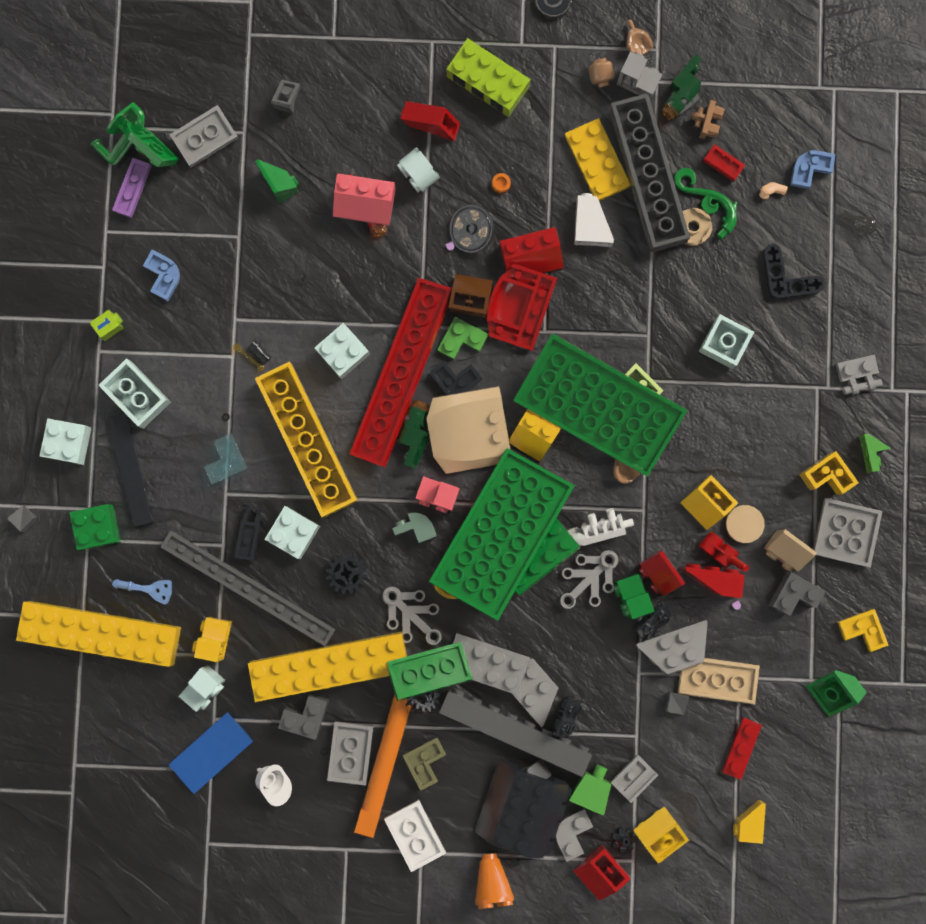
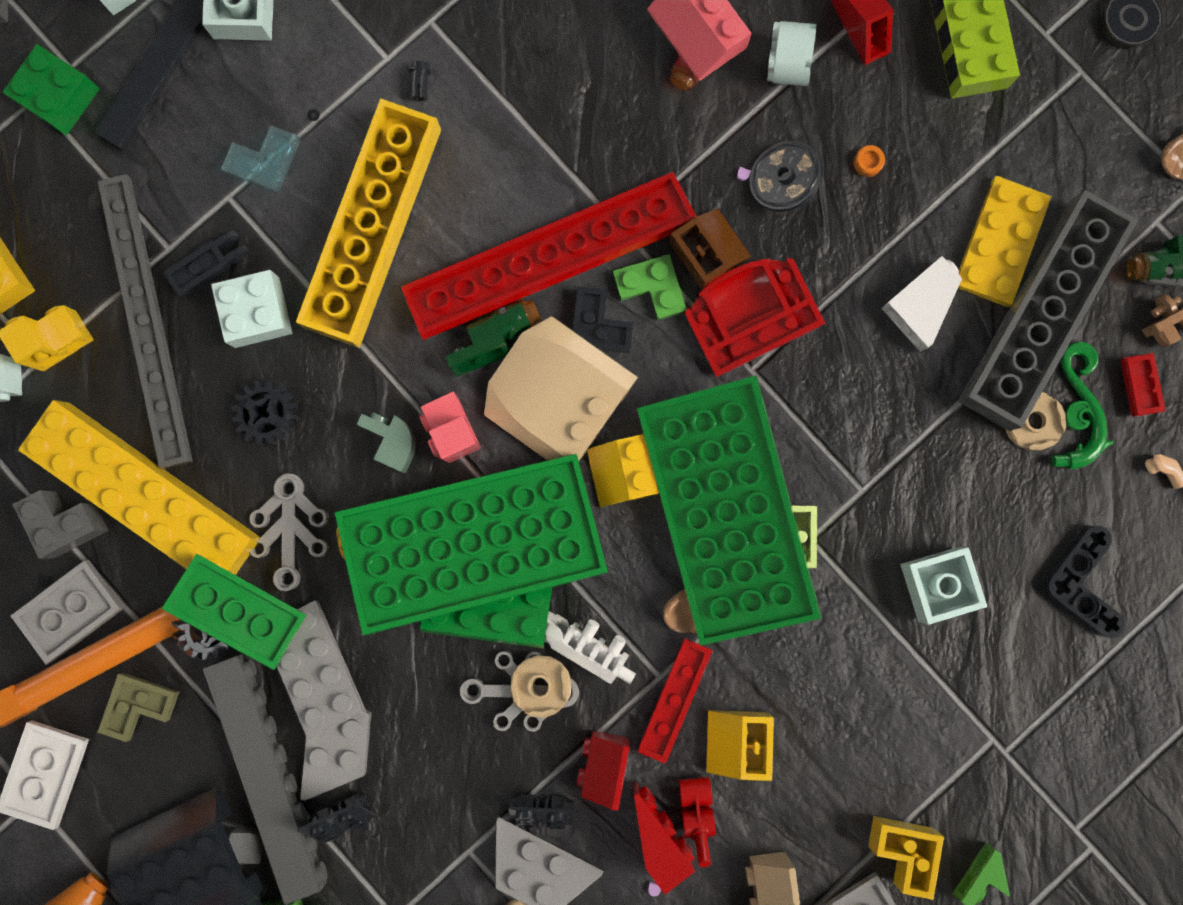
camera: 45 degrees right, 0 degrees up
(150, 589) = (44, 218): medium blue piece -> none
(237, 347) = (402, 54): clear yellow hinge -> none
(342, 351) = (507, 167): light aqua brick -> none
(534, 251) = (830, 269): red slope -> none
(596, 578) = (558, 686): none -> tan tile
(601, 72) = (1106, 148): medium nougat head -> none
(633, 596) = (546, 768): green brick -> none
(638, 77) = (1142, 193): light grey brick -> none
(661, 513) = (674, 700): none -> red plate
(745, 524) = (756, 809): tan tile -> none
(856, 369) = (1060, 765): light grey plate -> none

